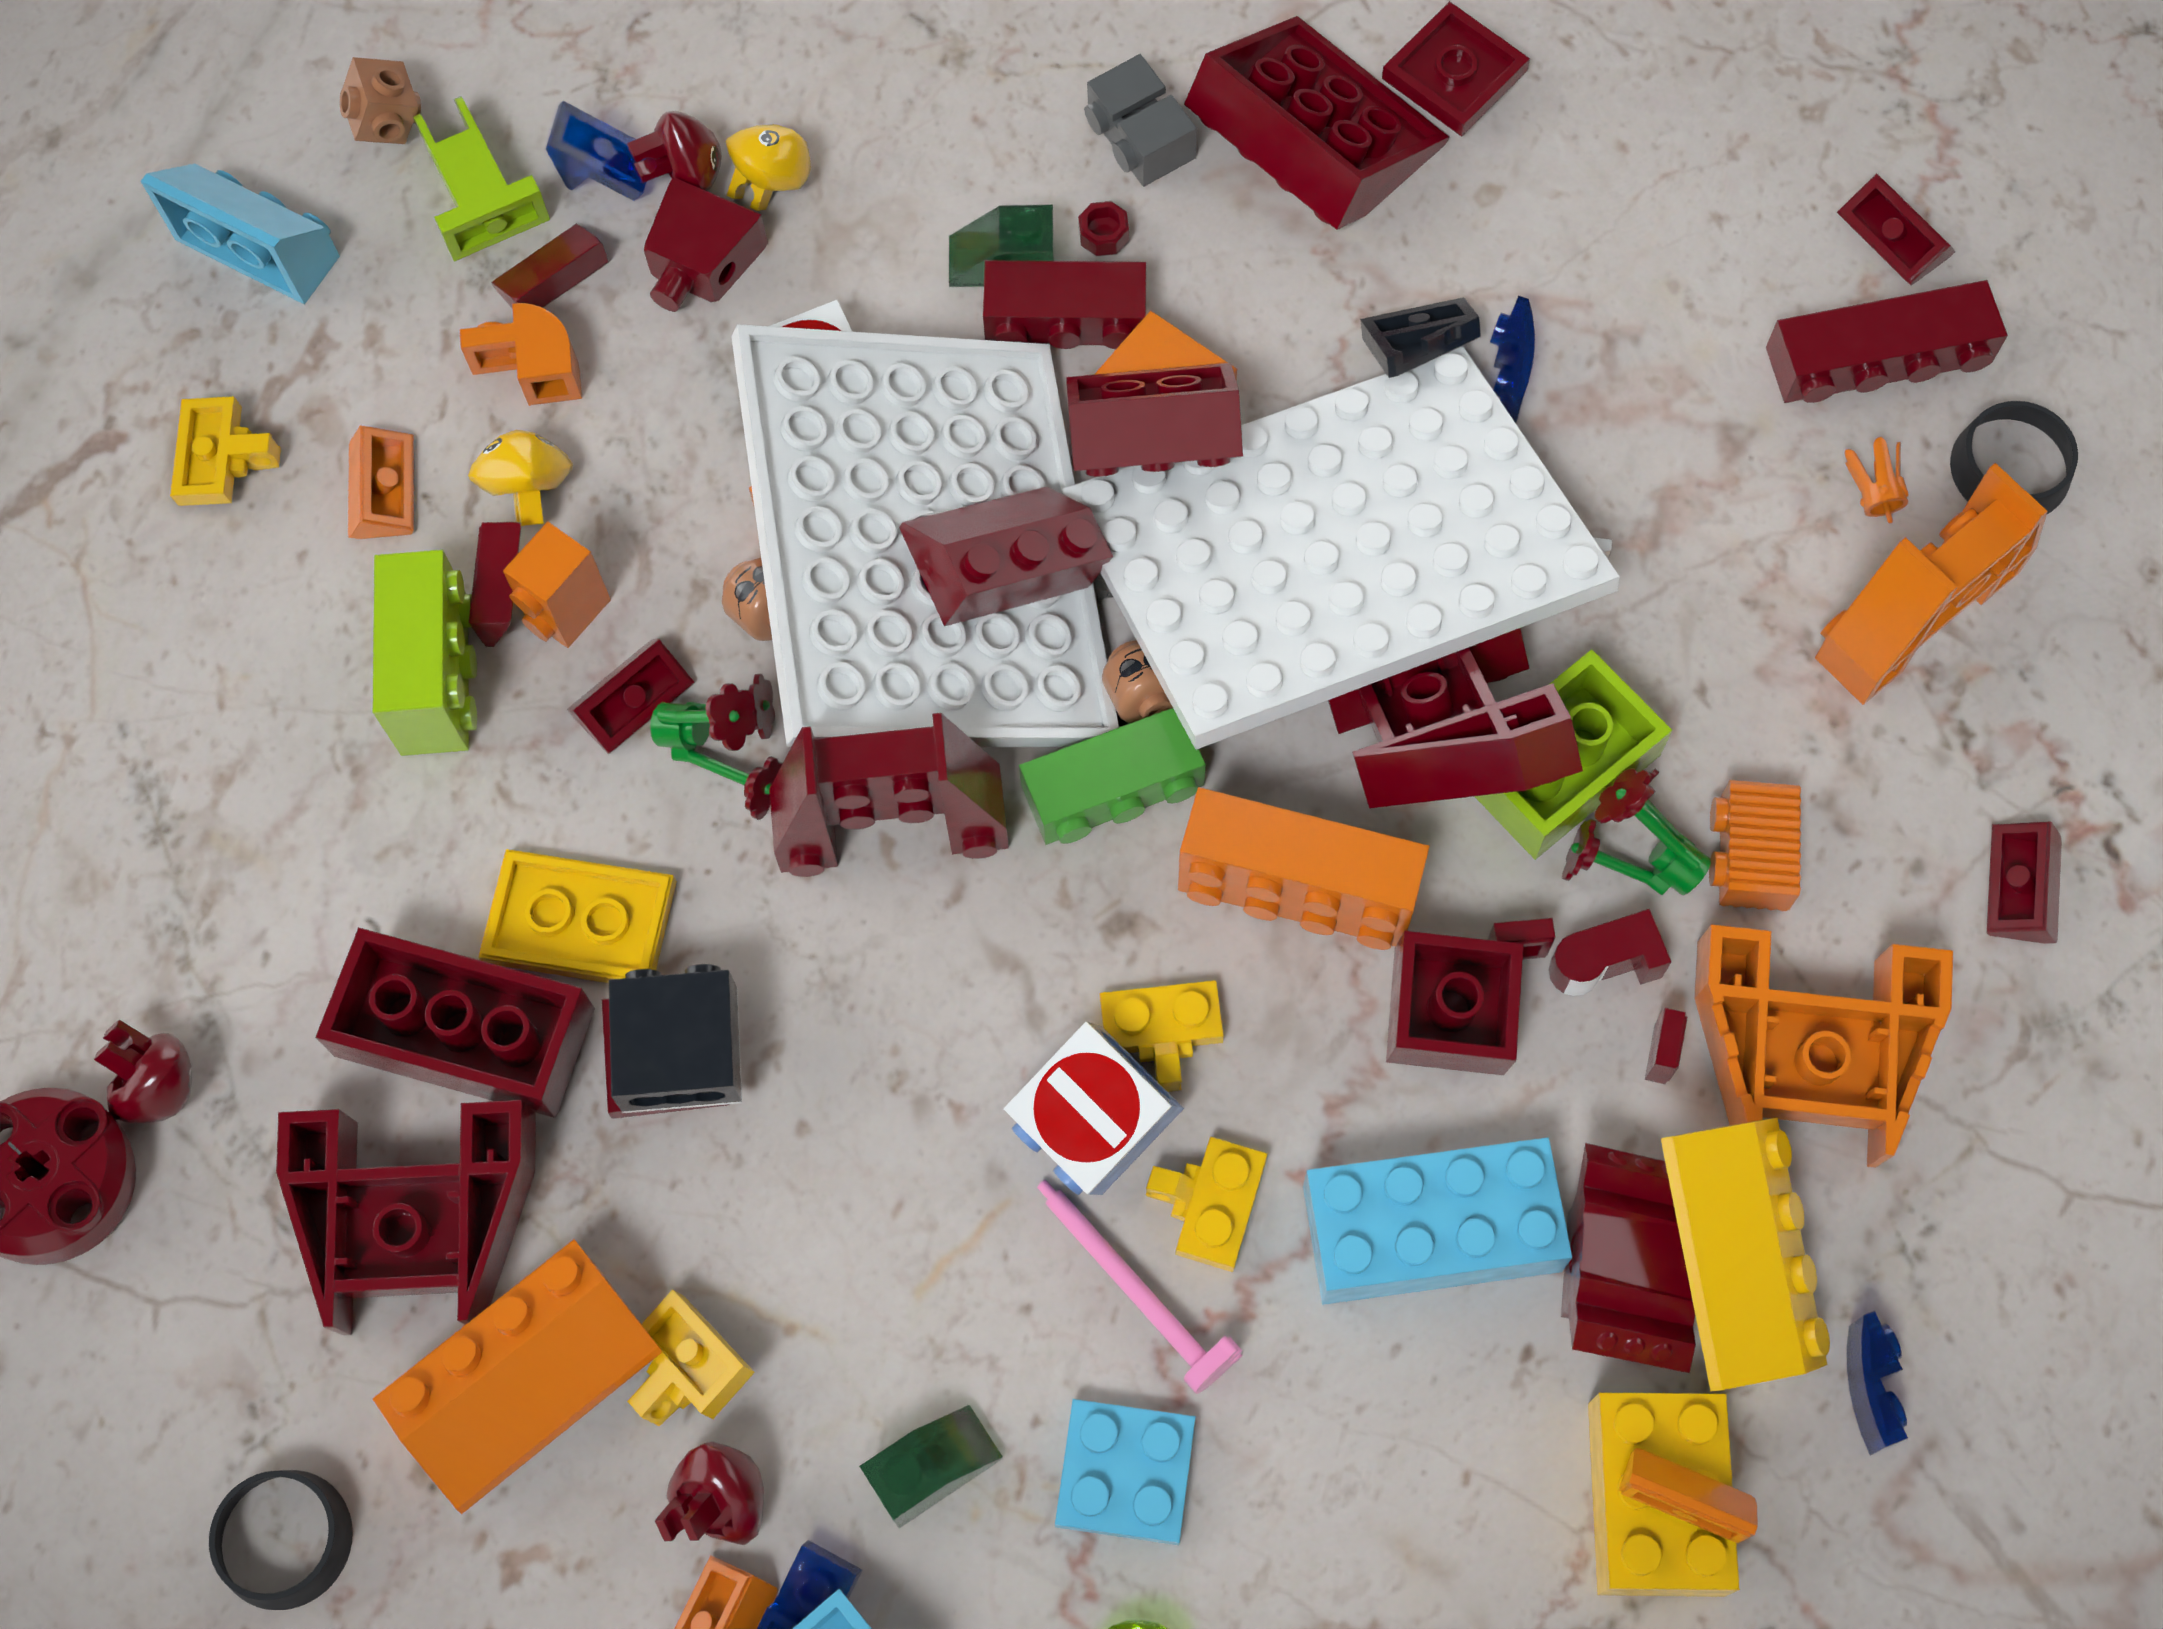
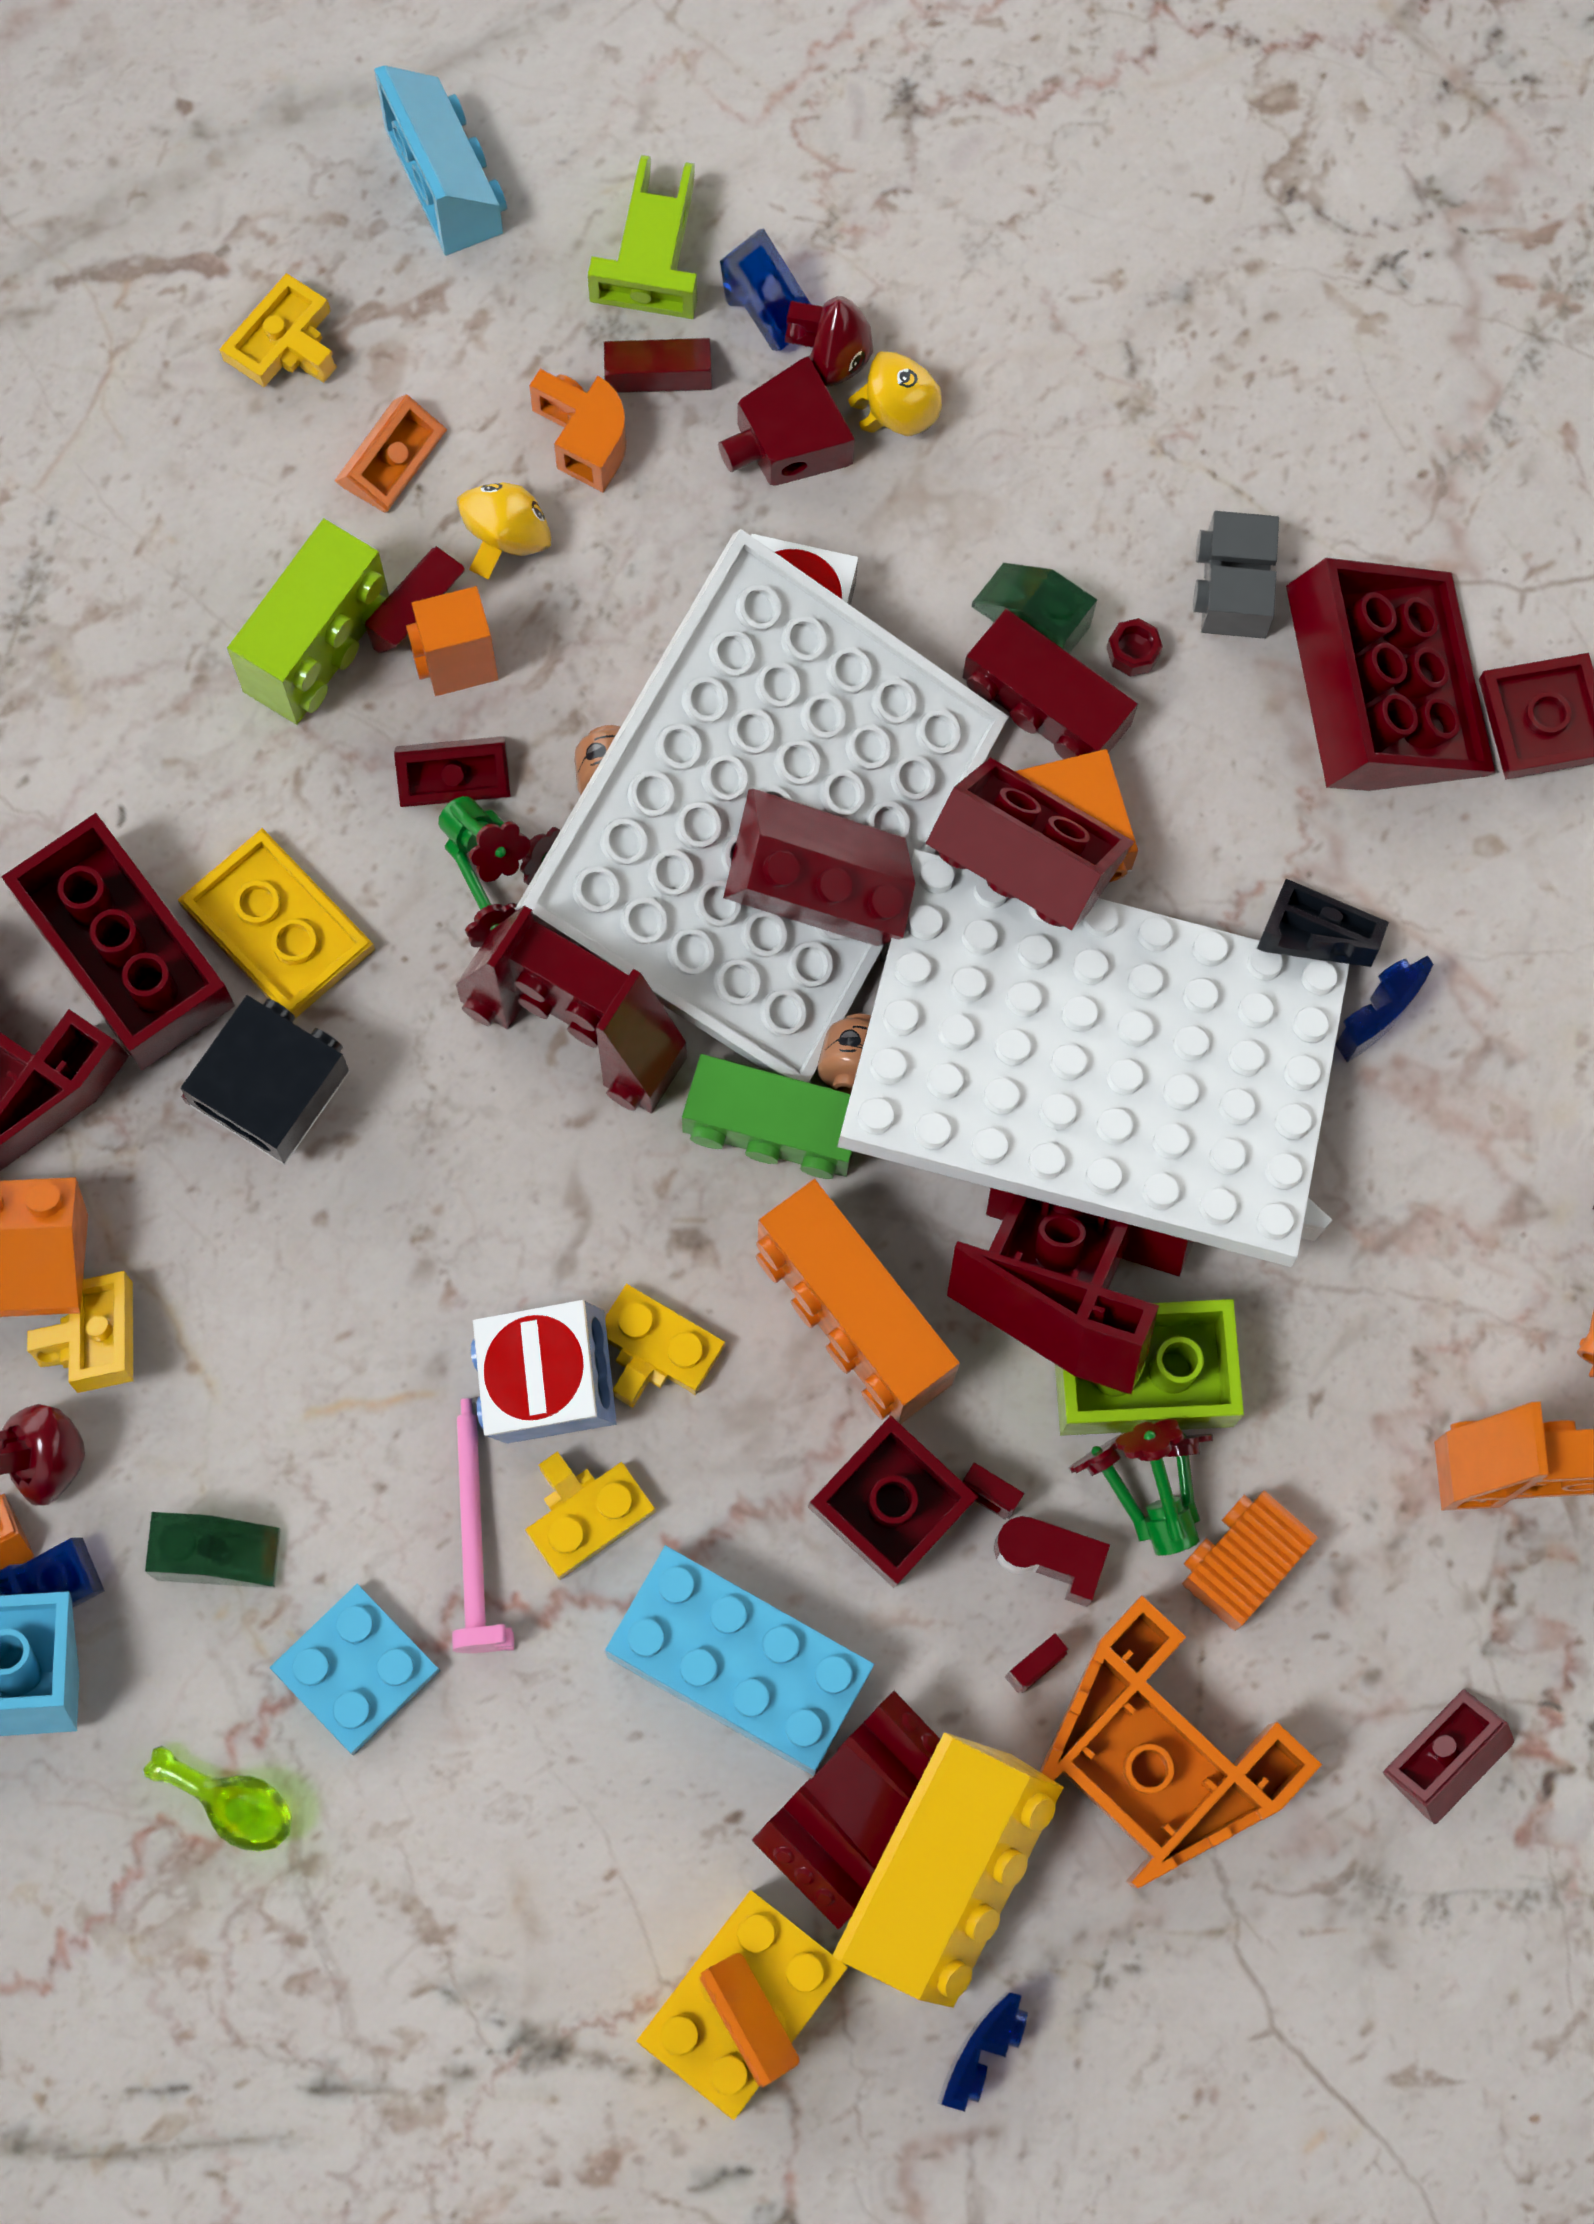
camera: 30 degrees right, 5 degrees up
(379, 101) = (625, 122): nougat brick -> none

